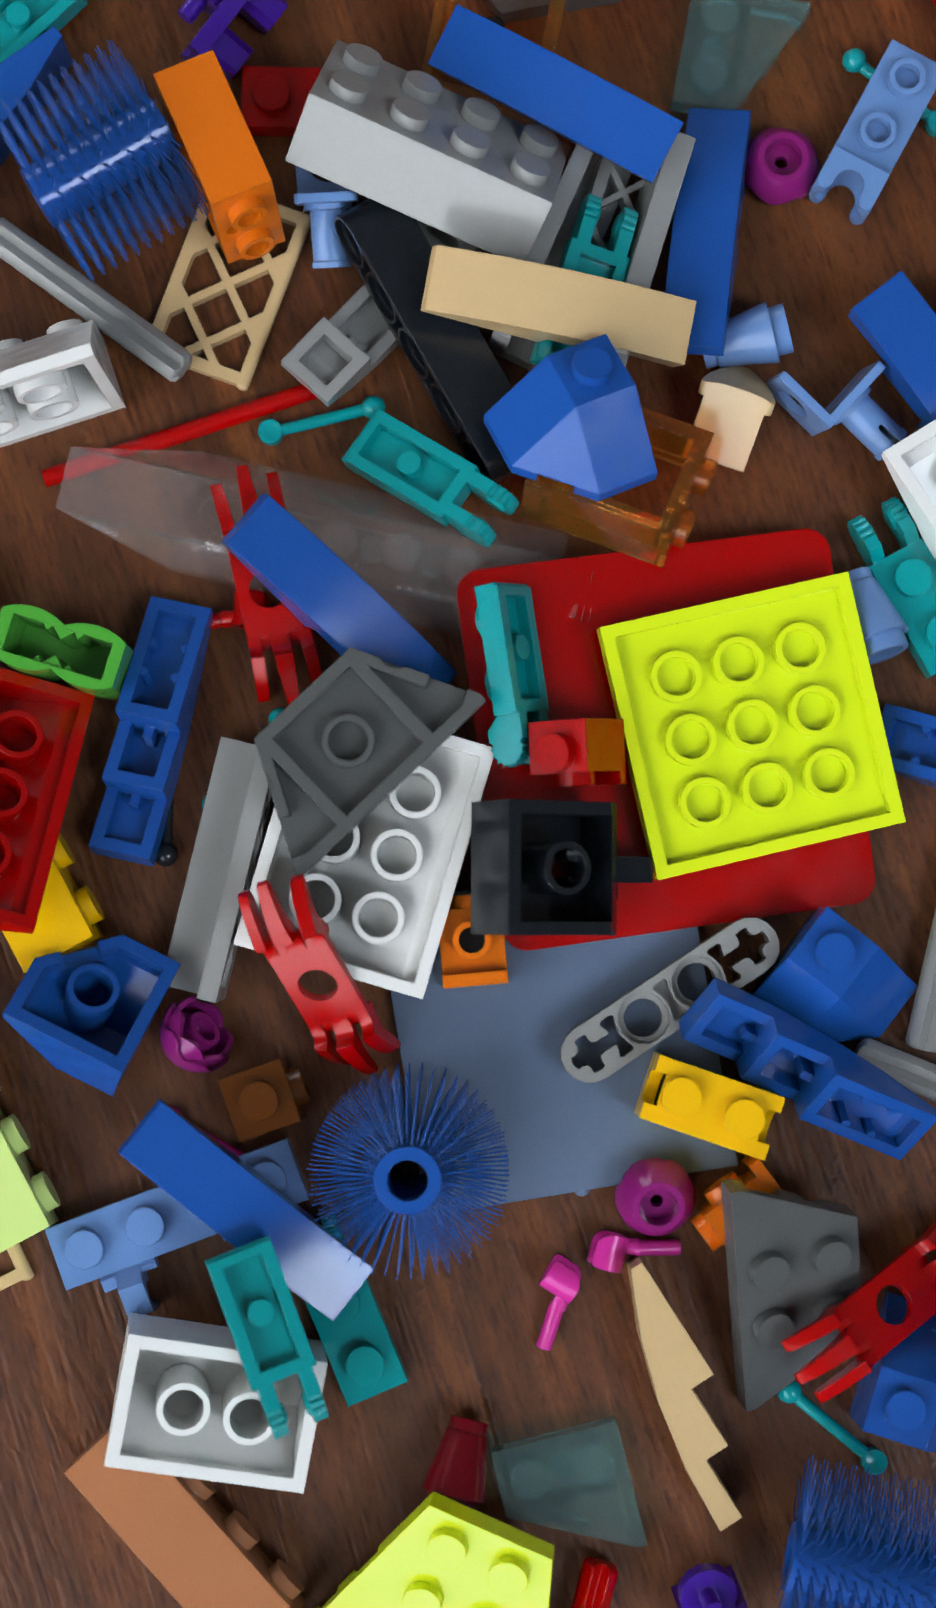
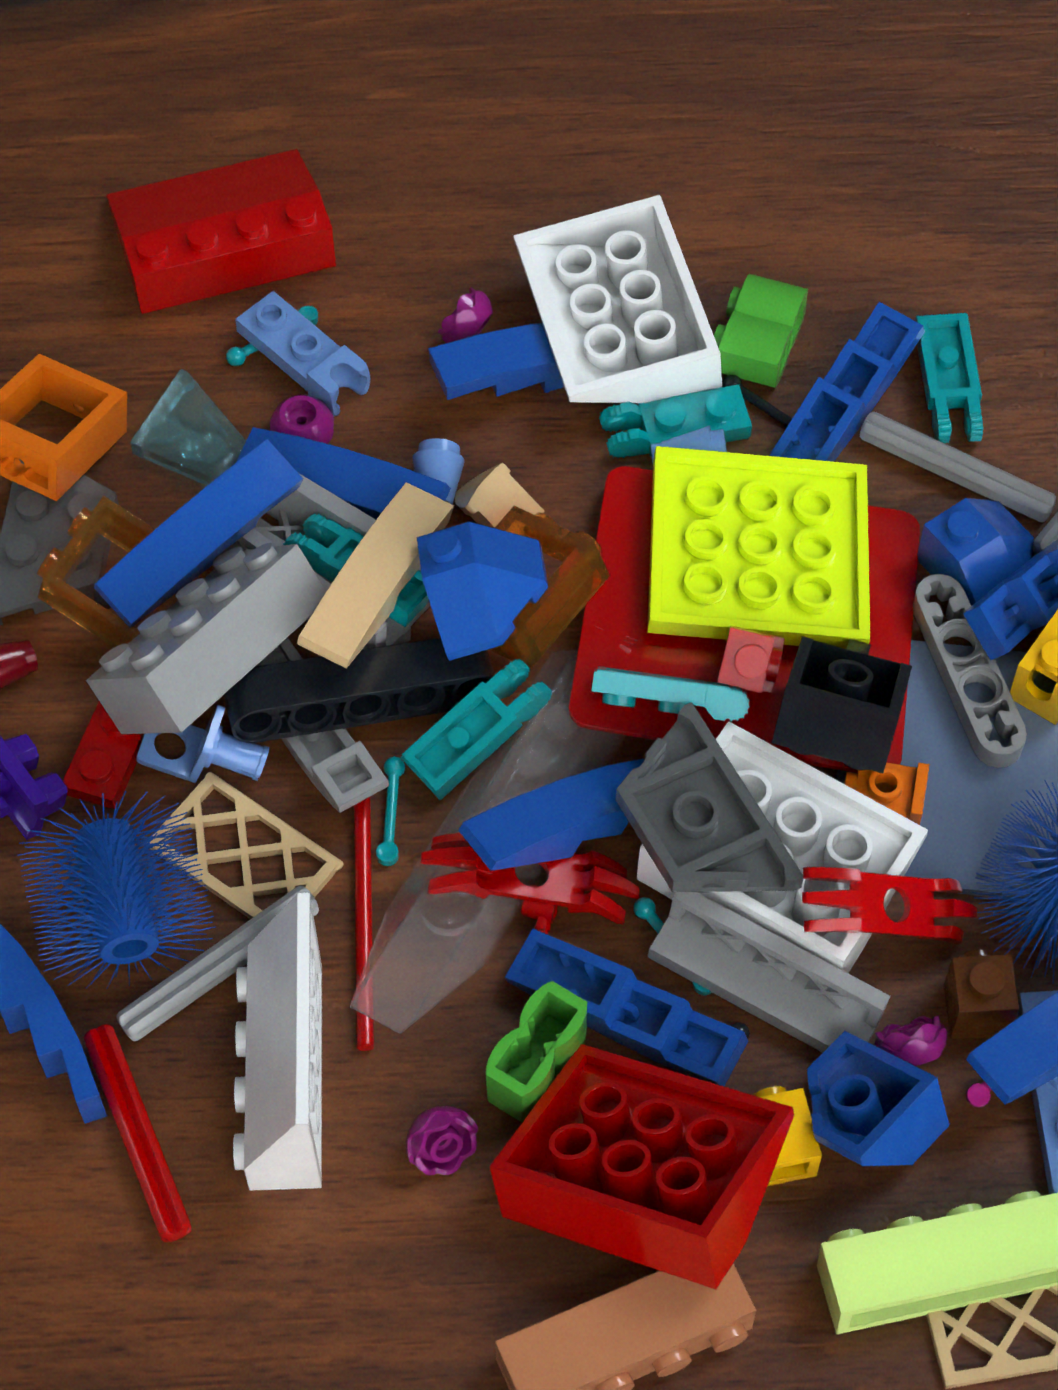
camera: 75 degrees left, 25 degrees down
(222, 157) = (169, 770): orange window -> none
(850, 407) = (517, 426): medium blue bracket -> none

